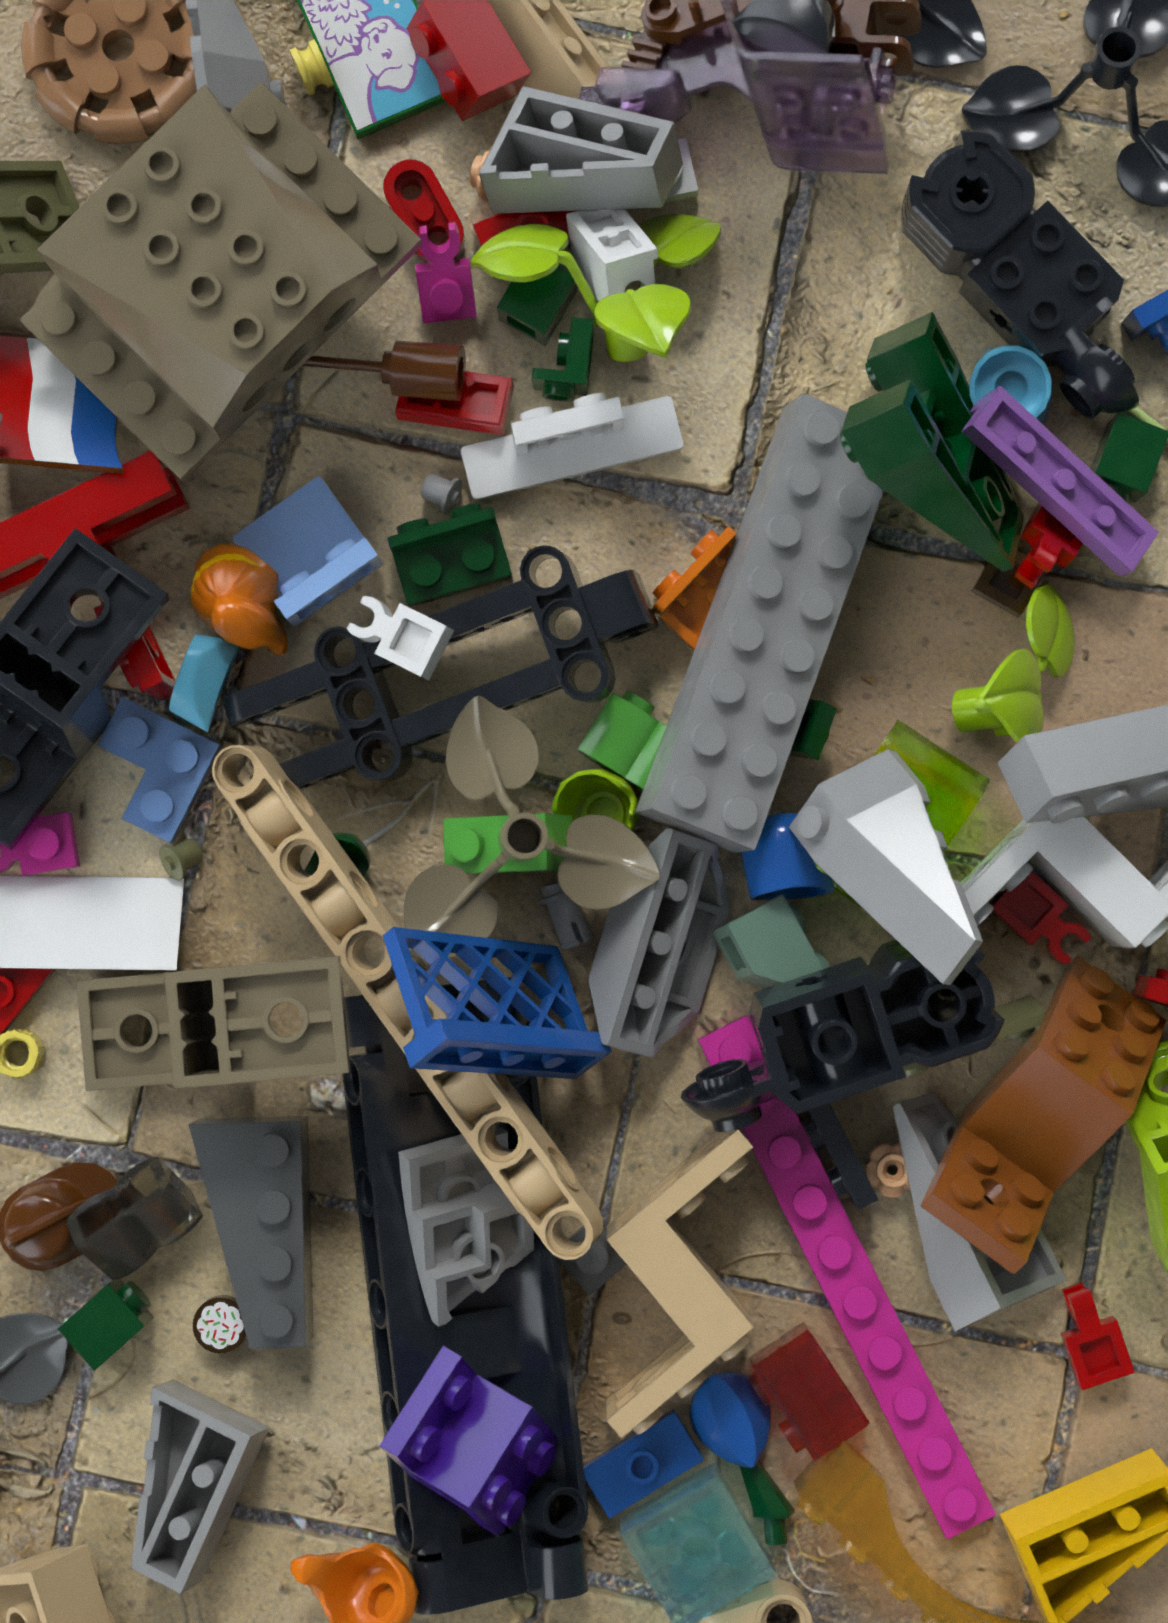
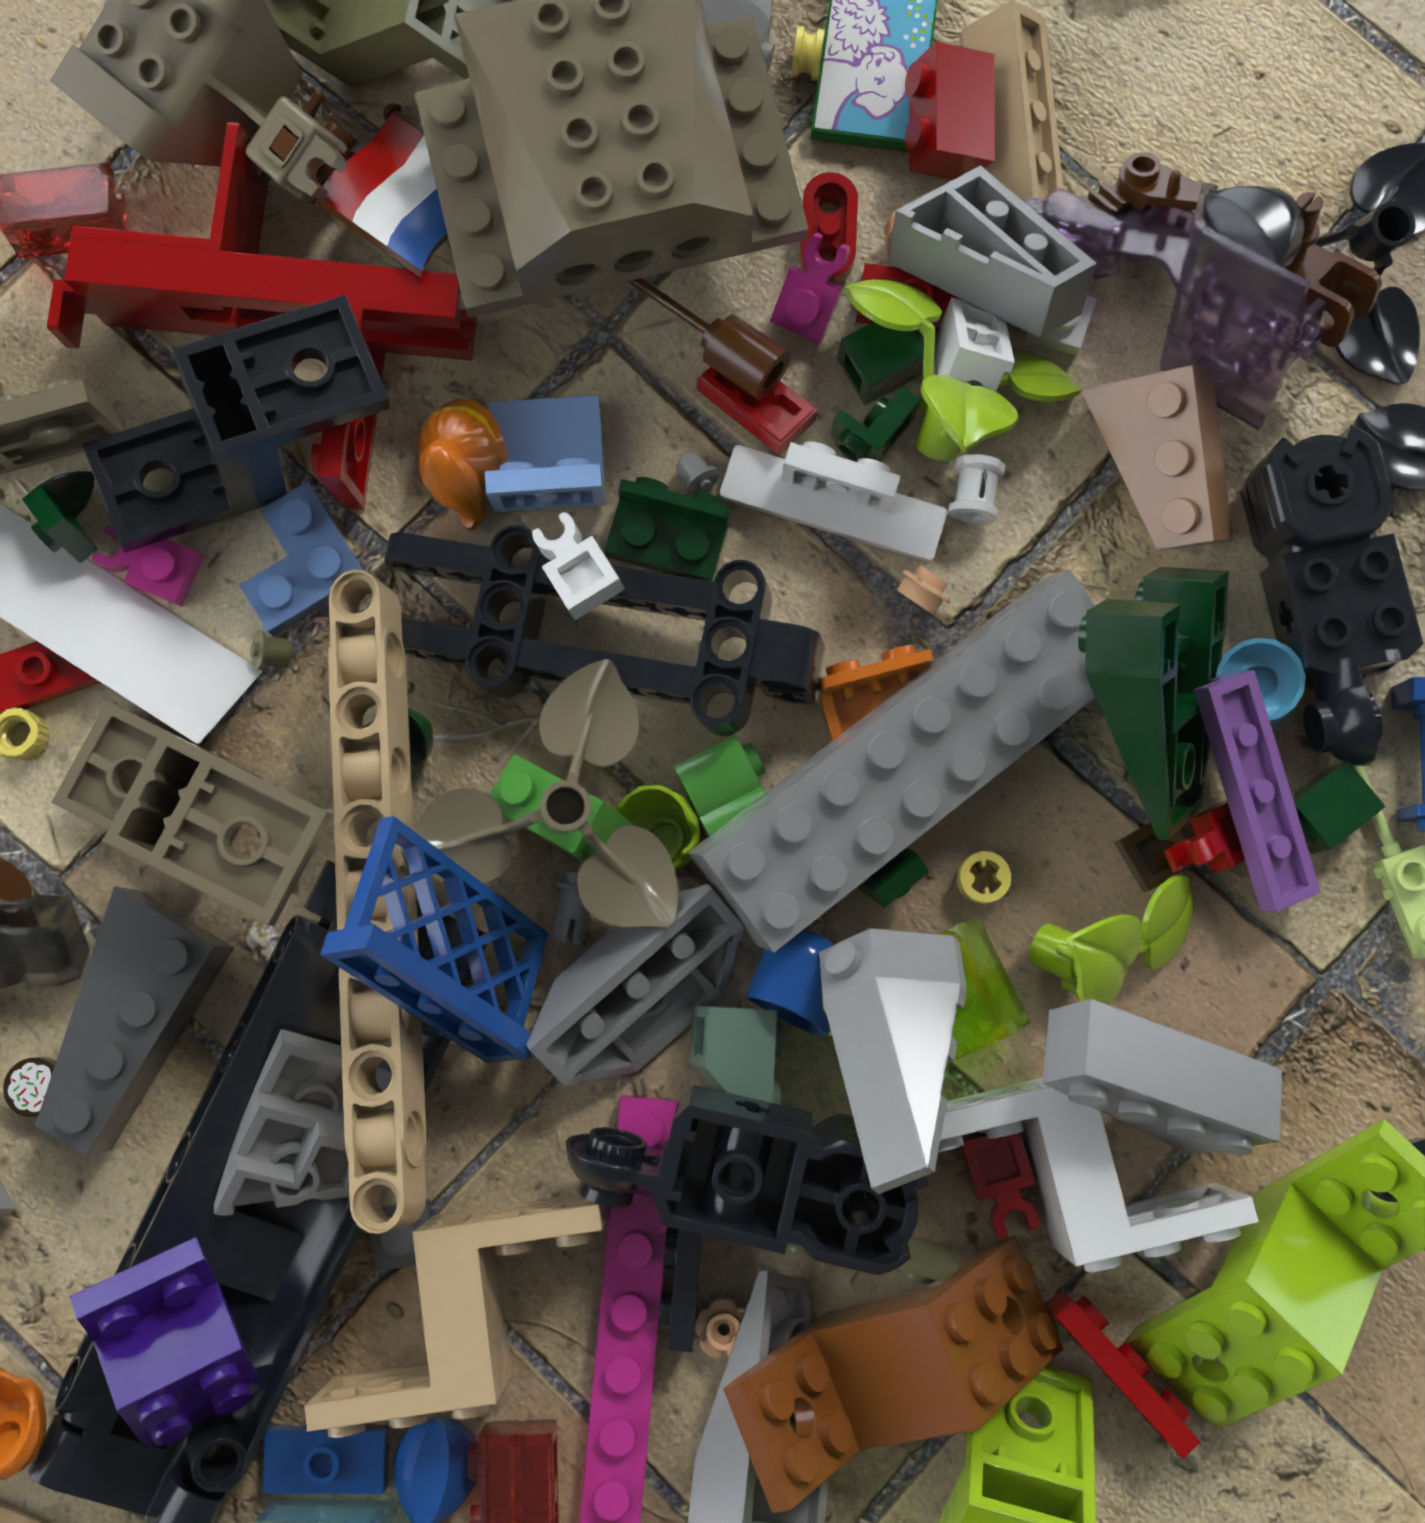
camera: 30 degrees right, 5 degrees down
(202, 679) = (383, 504): medium azure piece -> none
(686, 366) = (976, 489): none -> white bush
(691, 475) = (924, 589): none -> light nougat plate
(826, 242) = (1168, 453): none -> medium nougat wedge
(895, 675) = (1001, 877): none -> light yellow bush

